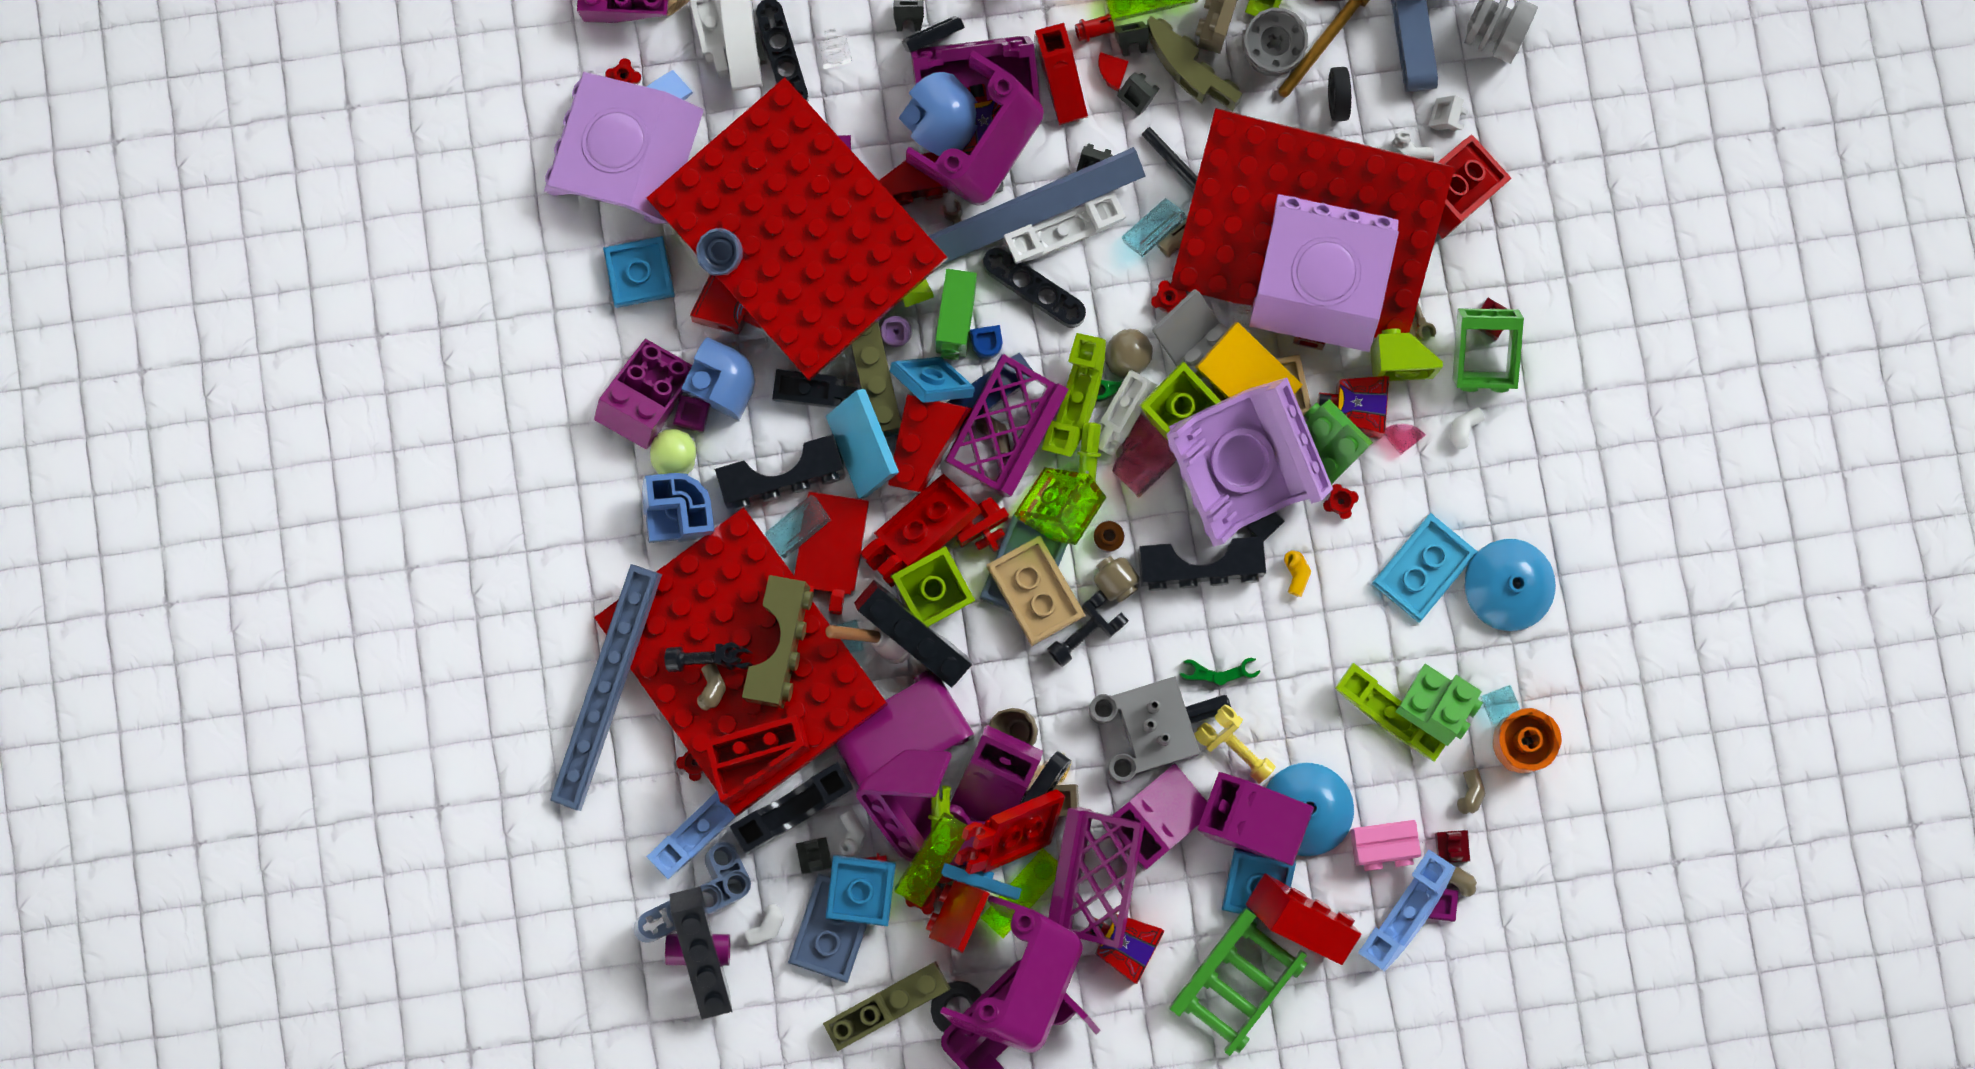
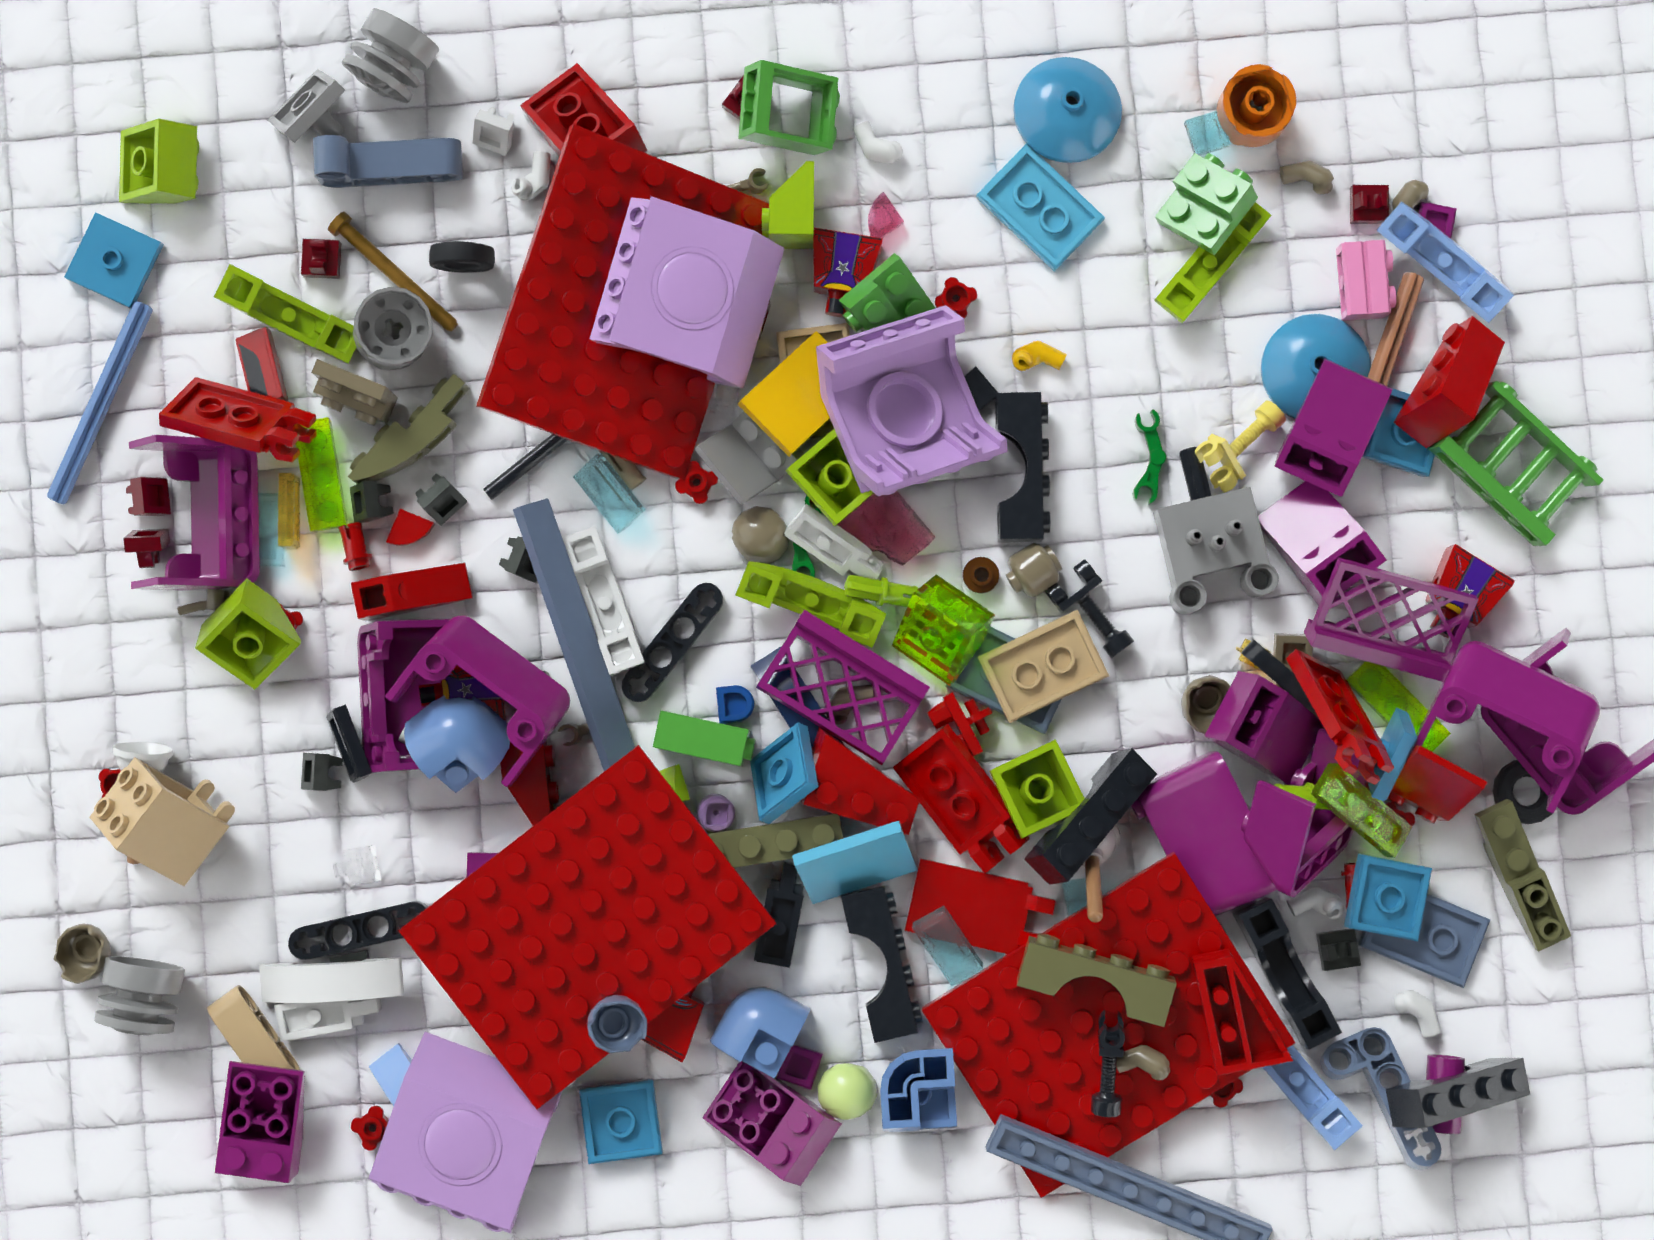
camera: 80 degrees left, 5 degrees up
(1345, 874) = (1396, 328): none -> nougat axle

